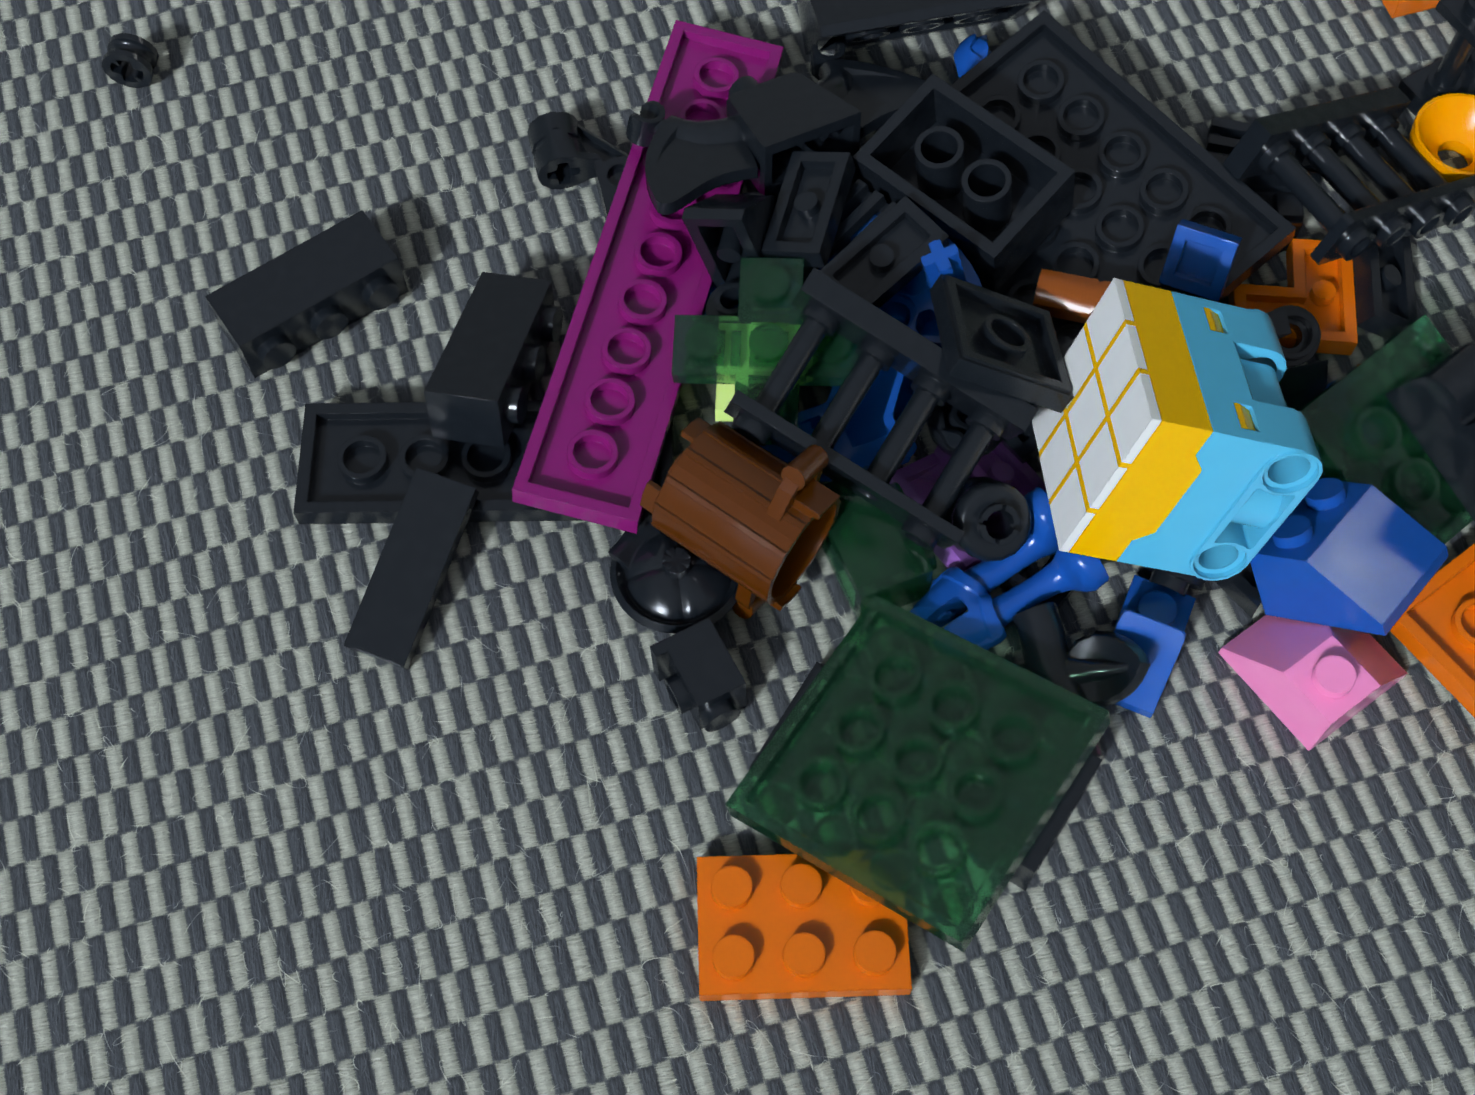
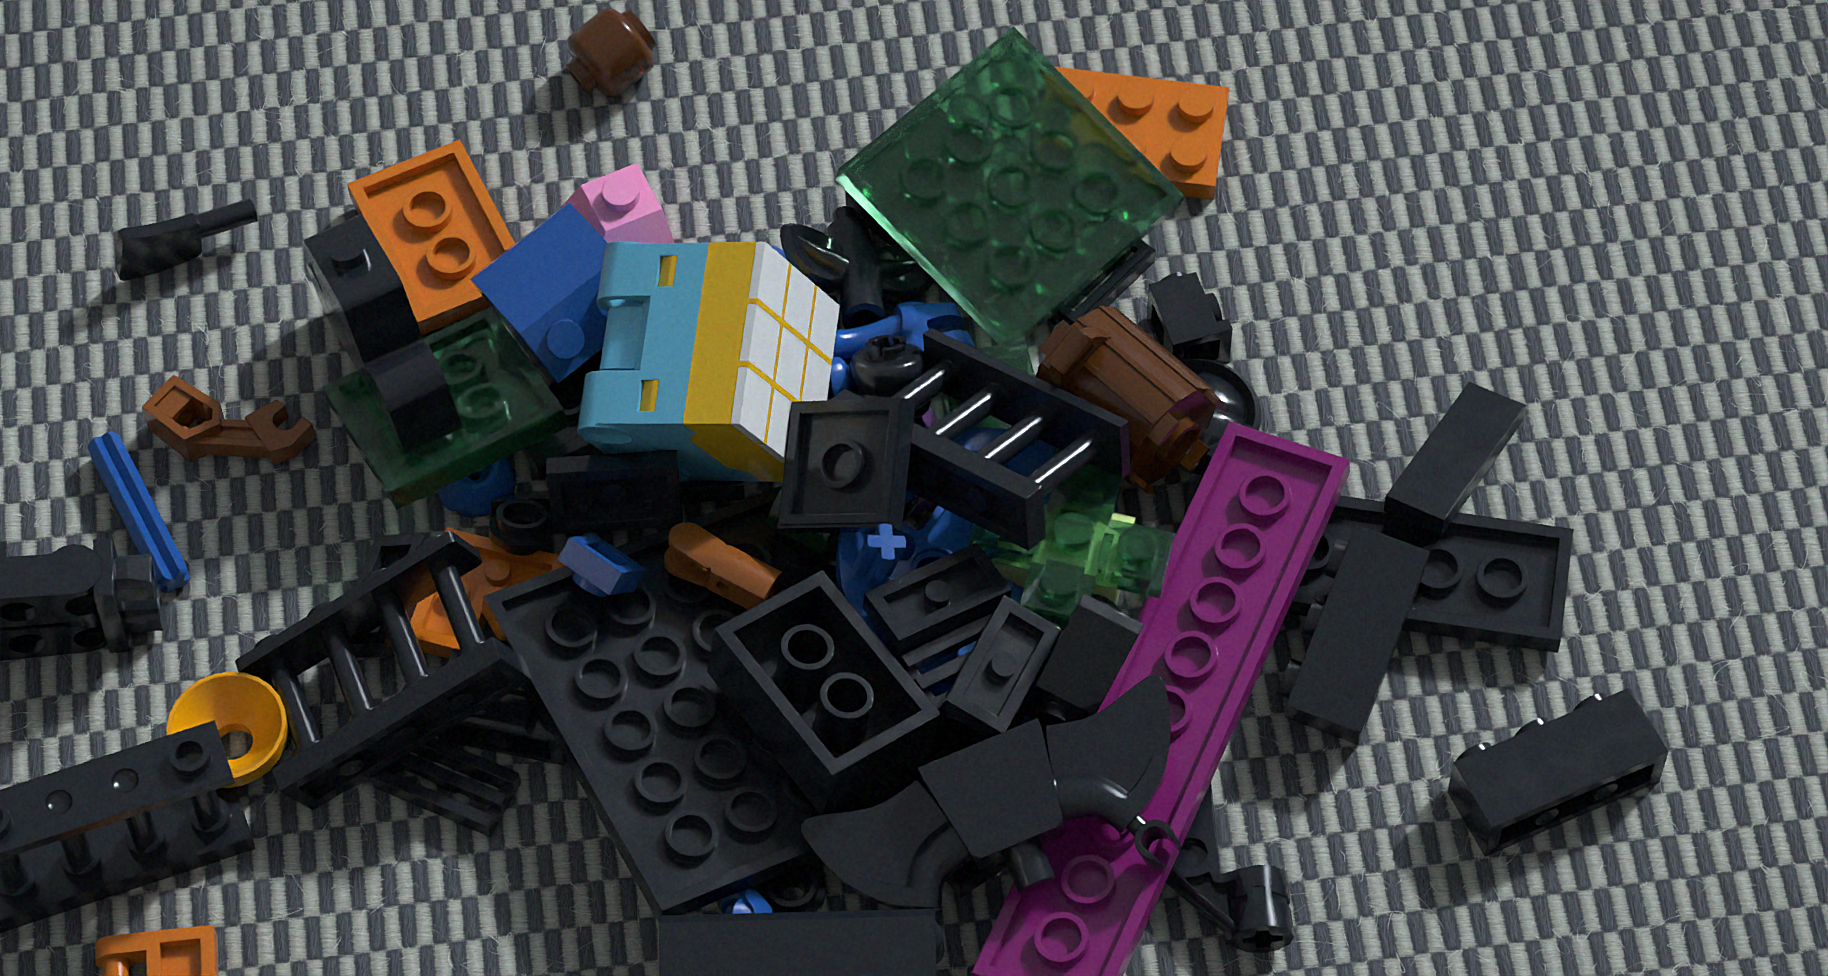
camera: 170 degrees left, 5 degrees down
(1417, 909) = (610, 52): none -> reddish brown head

